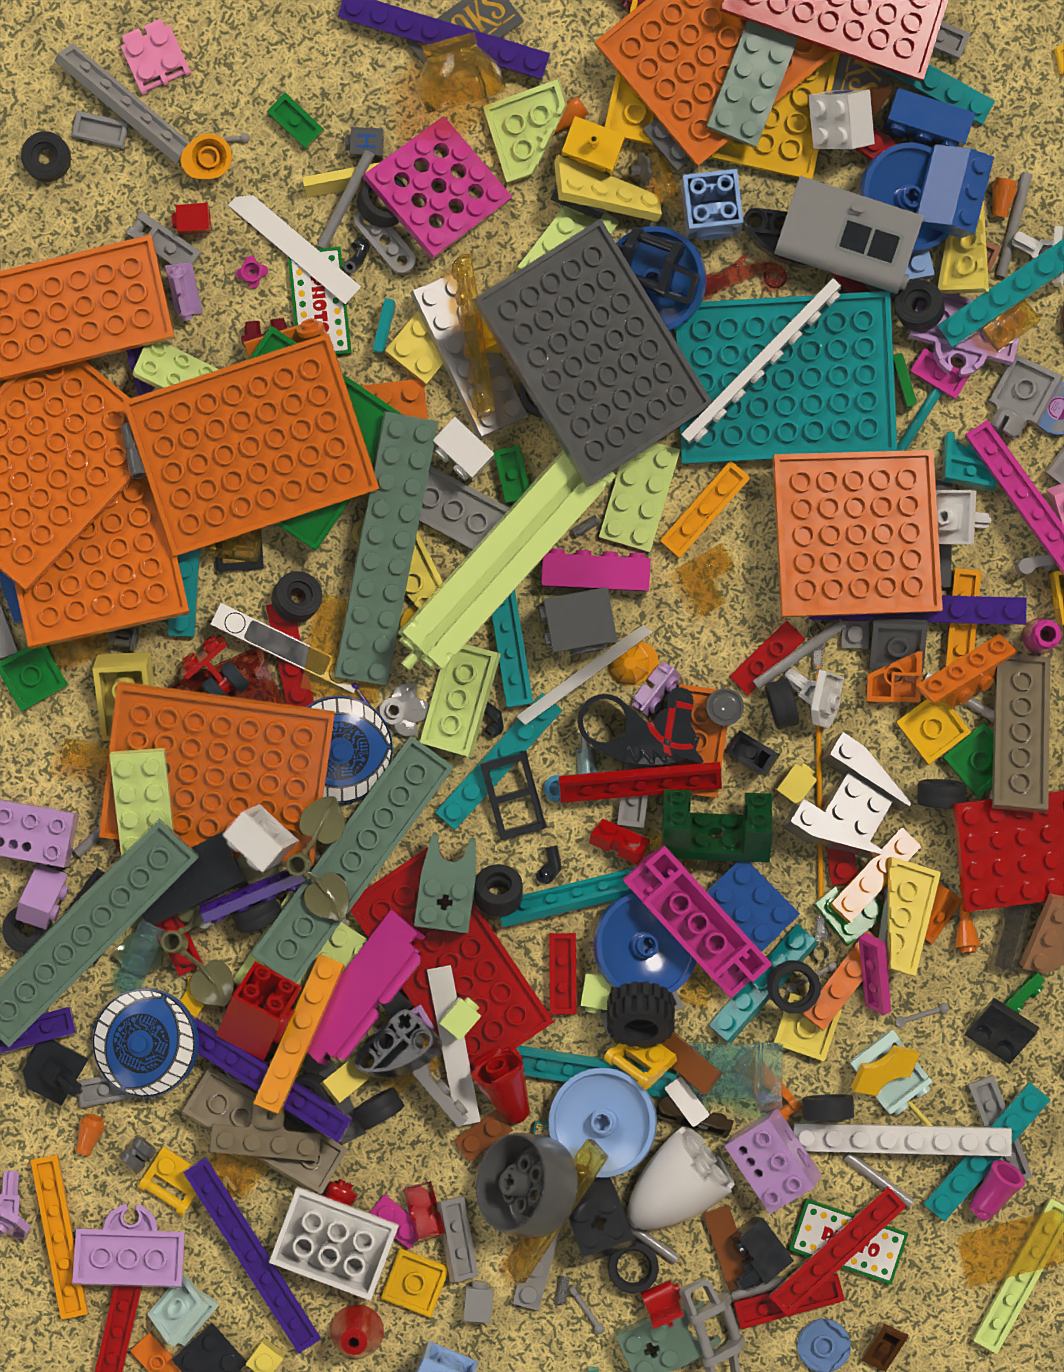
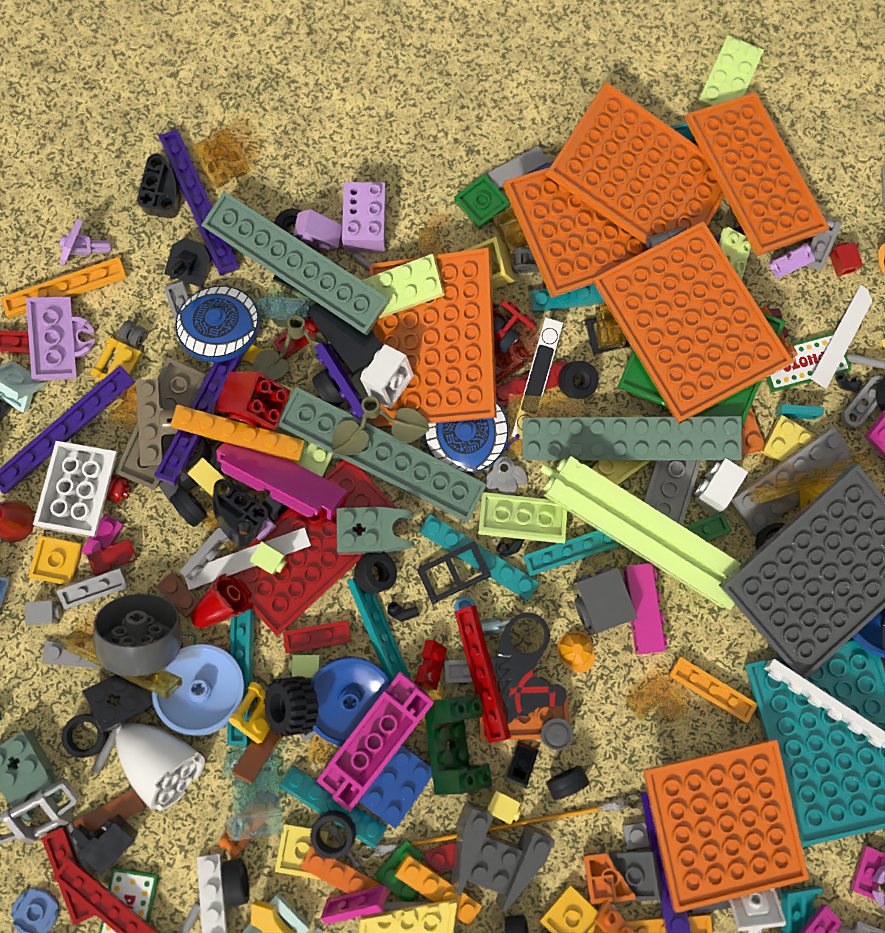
camera: 80 degrees right, 10 degrees down
(46, 141) = (868, 140): black tyre -> none
(89, 1132) = (145, 296): orange cone -> none
(252, 264) = (815, 303): dark pink plate -> none
(562, 1290) = (64, 680): light grey piece -> none
(583, 674) = (560, 612): white sticker -> none
(585, 526) = (678, 595): light grey piece -> none
(598, 1327) = (33, 715): light grey hinge -> none
(639, 497) = (712, 634): yellowish green plate -> none
(663, 1303) = (51, 767): red door -> none
(664, 680) = (549, 672): lavender hinge -> none
(687, 1101) = (224, 758): white sticker -> none
(714, 1124) = (213, 765): dark brown plate -> none
(771, 652) = (602, 763): red plate -> none
(773, 1160) = (183, 842): lavender piece -> none
(800, 653) = (612, 791): light grey bar -> none
(822, 694) = (581, 816): white piece -> none
(903, 381) = (855, 842): green tile -> none
(919, 419) = (829, 862): teal bar -> none

